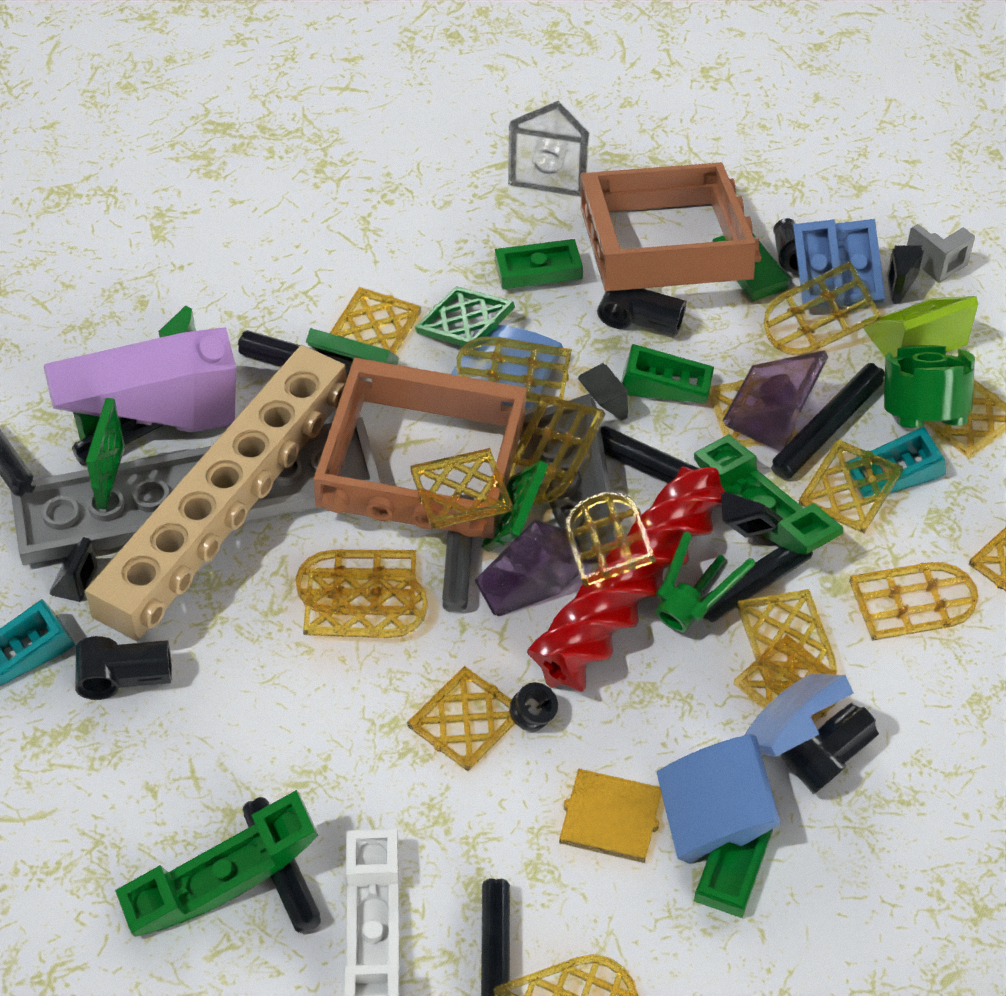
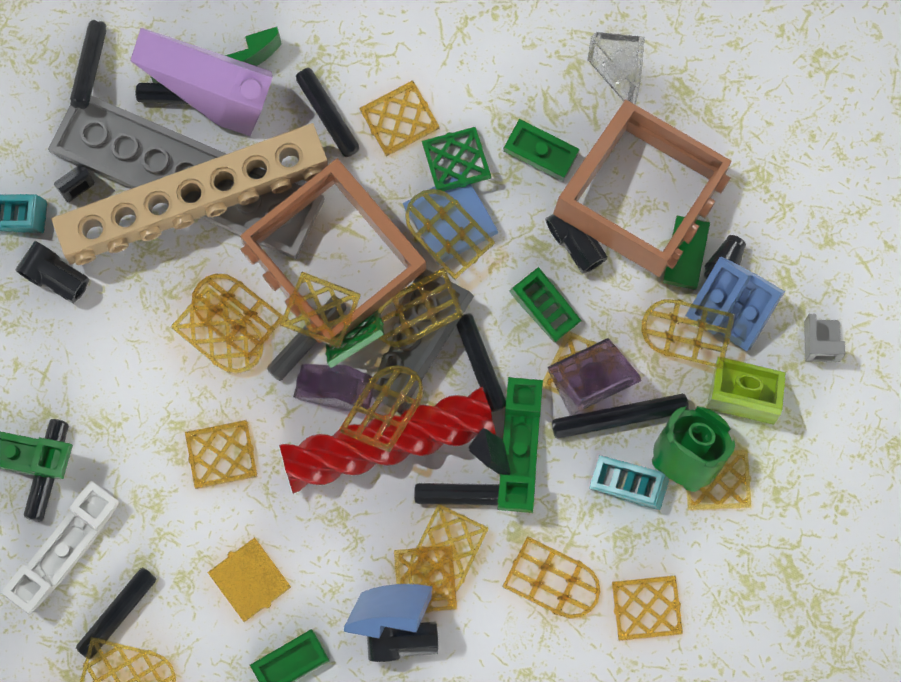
camera: 40 degrees right, 25 degrees up
(105, 453) = (126, 120): green window -> none
(348, 348) = (360, 136): green tile -> none
(546, 699) = (262, 469): black bush -> none
(606, 390) = (488, 290): pearl dark grey slope -> none
(685, 603) = (398, 481): green plant -> none
(717, 797) = (307, 621): medium blue slope -> none
(877, 499) = (576, 452): clear yellow window -> none
(903, 270) = (779, 339): black slope -> none

